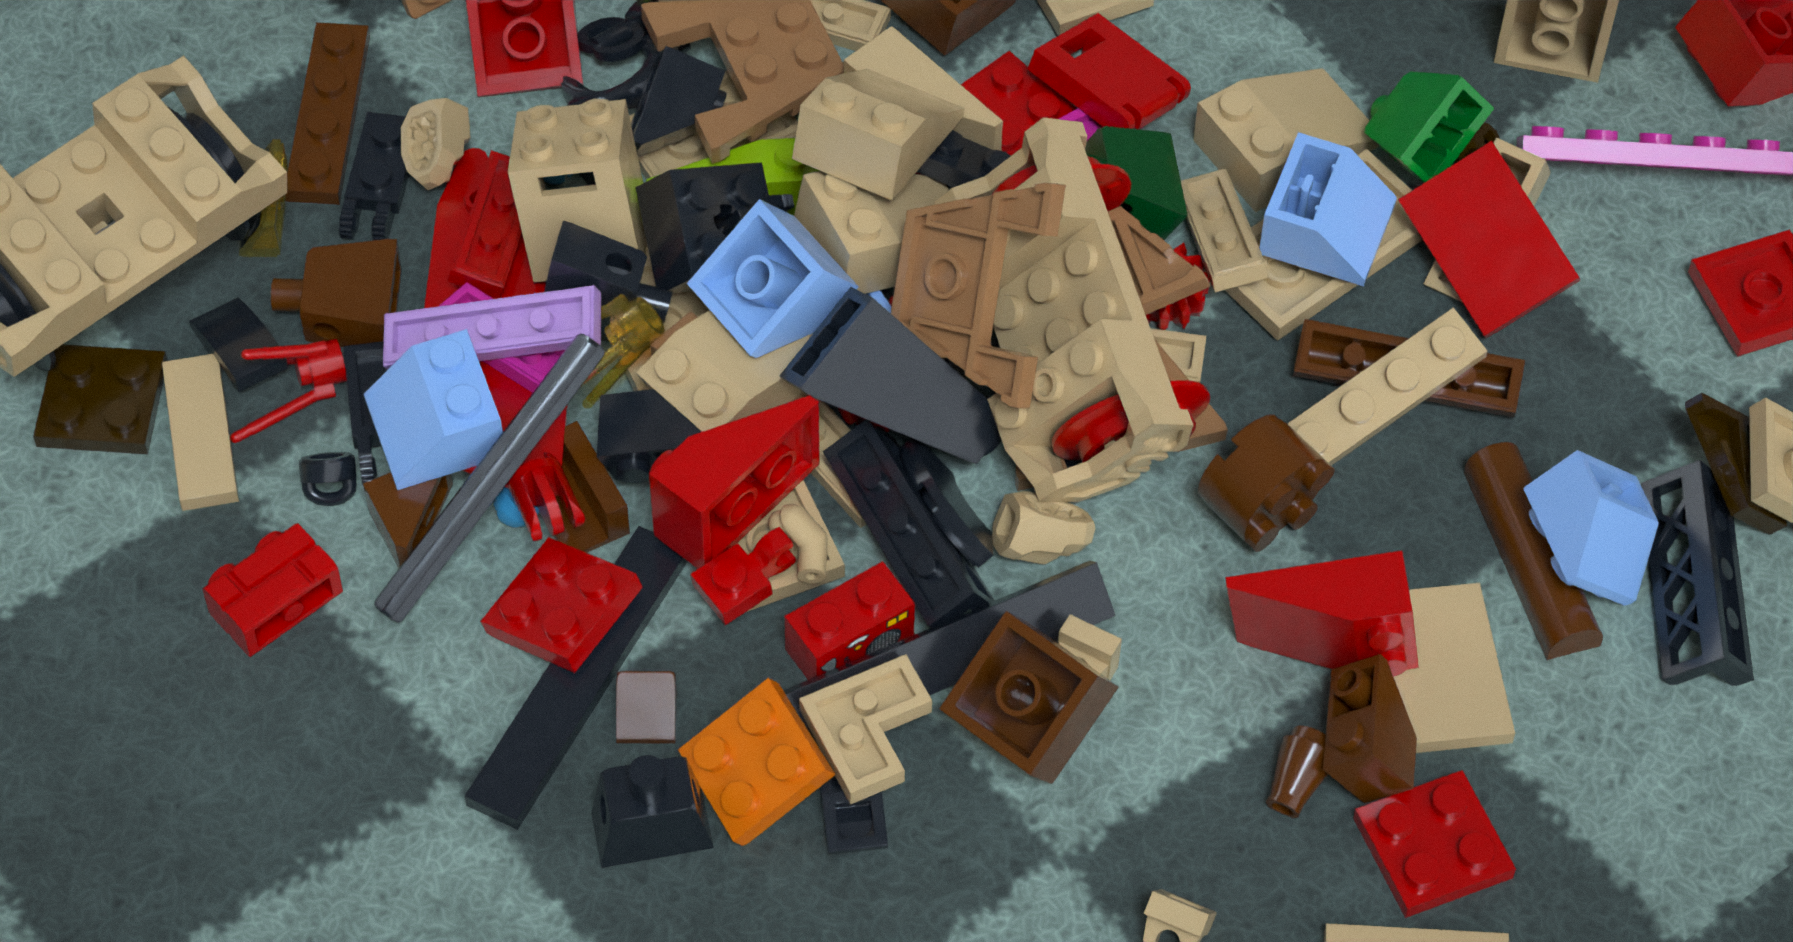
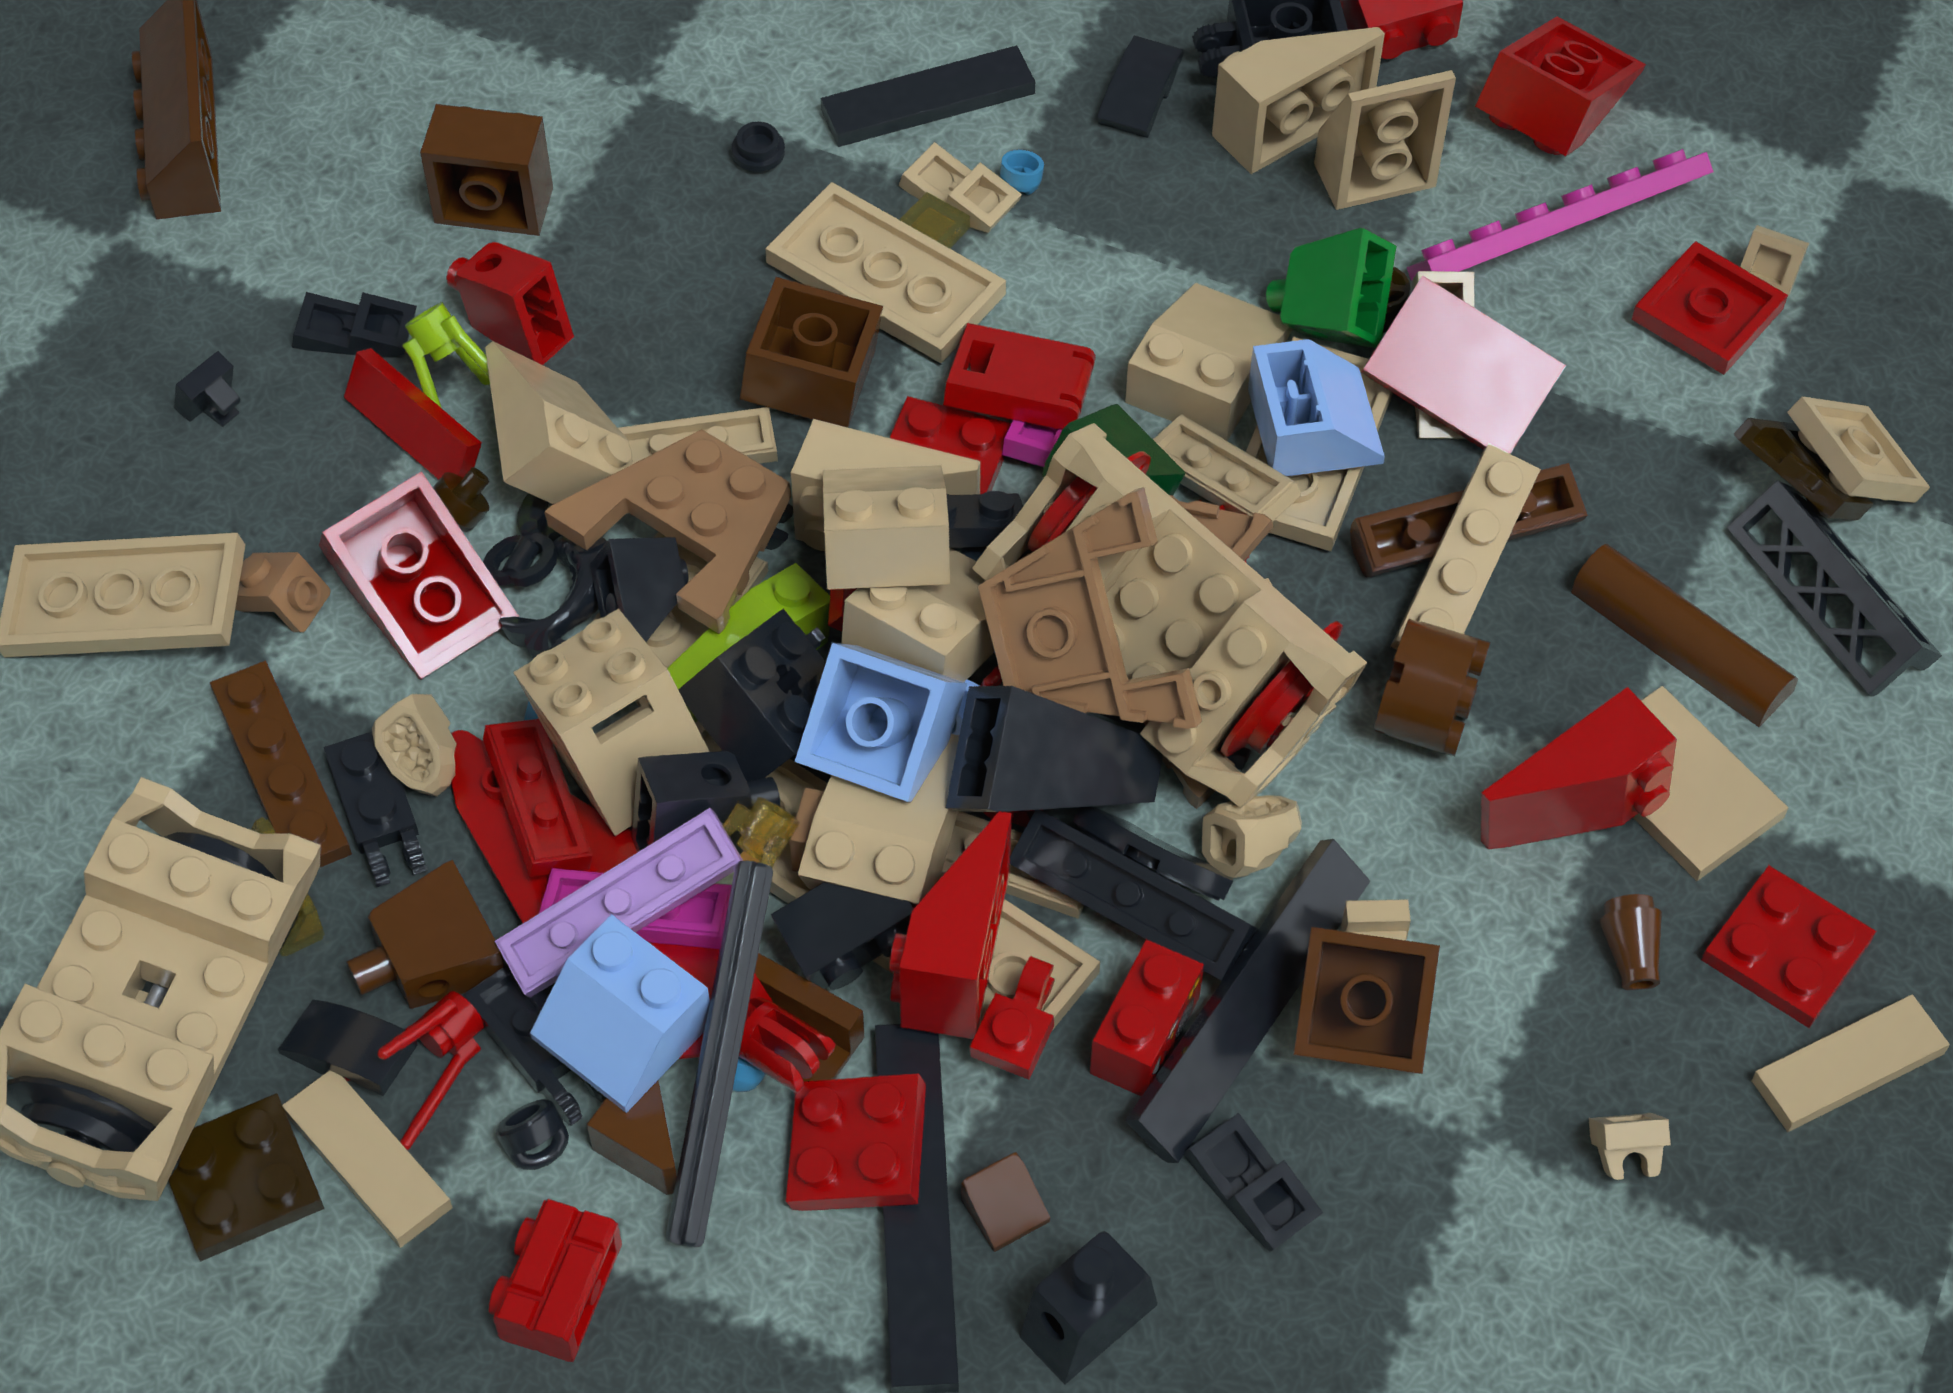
camera: 30 degrees left, 0 degrees up
(756, 762) = (1153, 1197): orange plate -> none
(808, 537) = (1056, 950): tan arm -> none
(852, 720) = (1219, 1113): tan plate -> none
(1369, 731) = (1676, 870): reddish brown slope -> none
(1594, 525) = (1735, 580): light blue slope -> none

